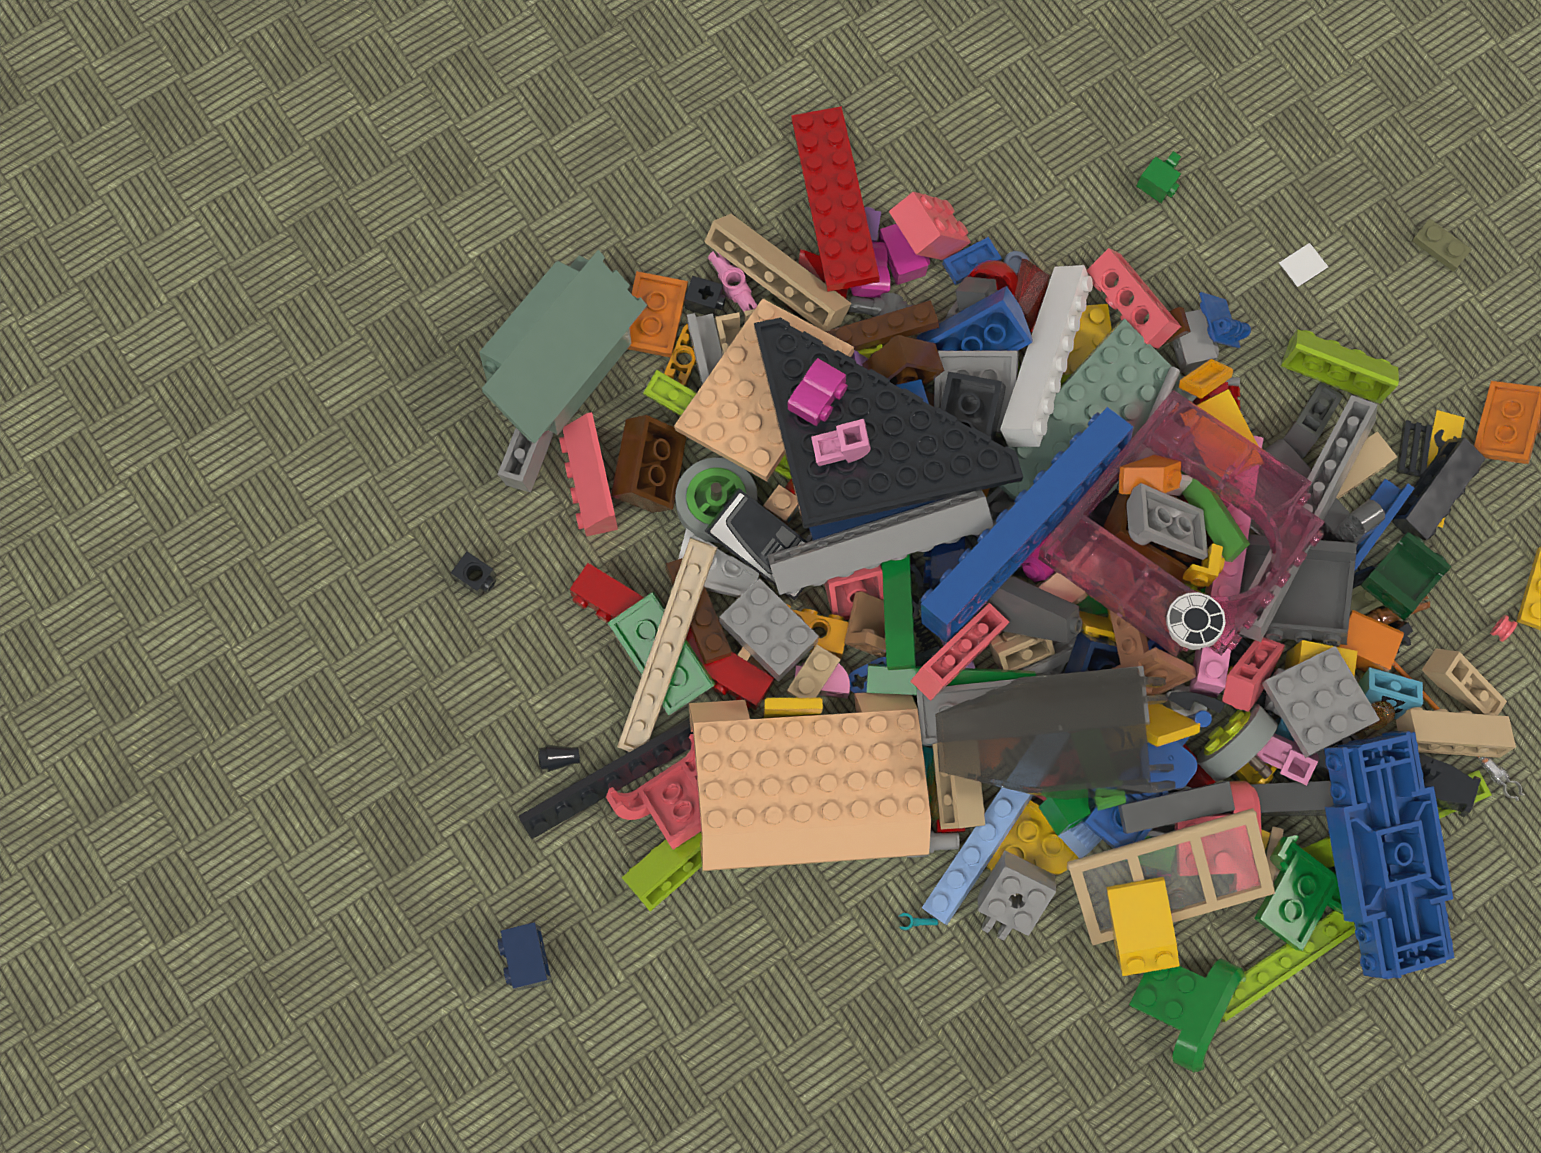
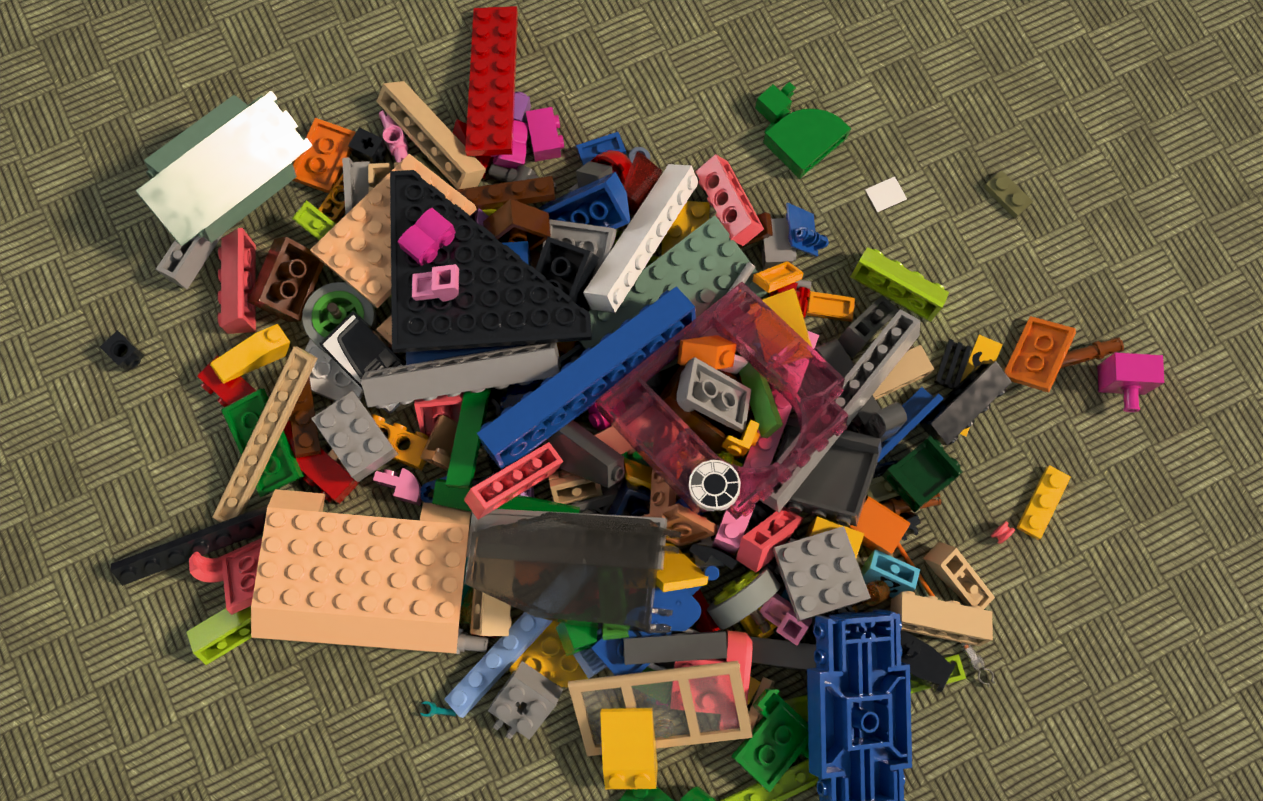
camera: 10 degrees right, 0 degrees up
(525, 957) = (87, 688): dark blue brick -> none
(557, 757) = (158, 518): black cone -> none
(627, 554) = (252, 354): none -> yellow slope
(792, 707) = (358, 507): yellow tile -> none
(813, 674) = (387, 481): tan plate -> none
(930, 226) = (565, 113): coral brick -> none
(1202, 214) = (805, 138): none -> green brick
(1266, 402) = (830, 306): none -> light orange tile

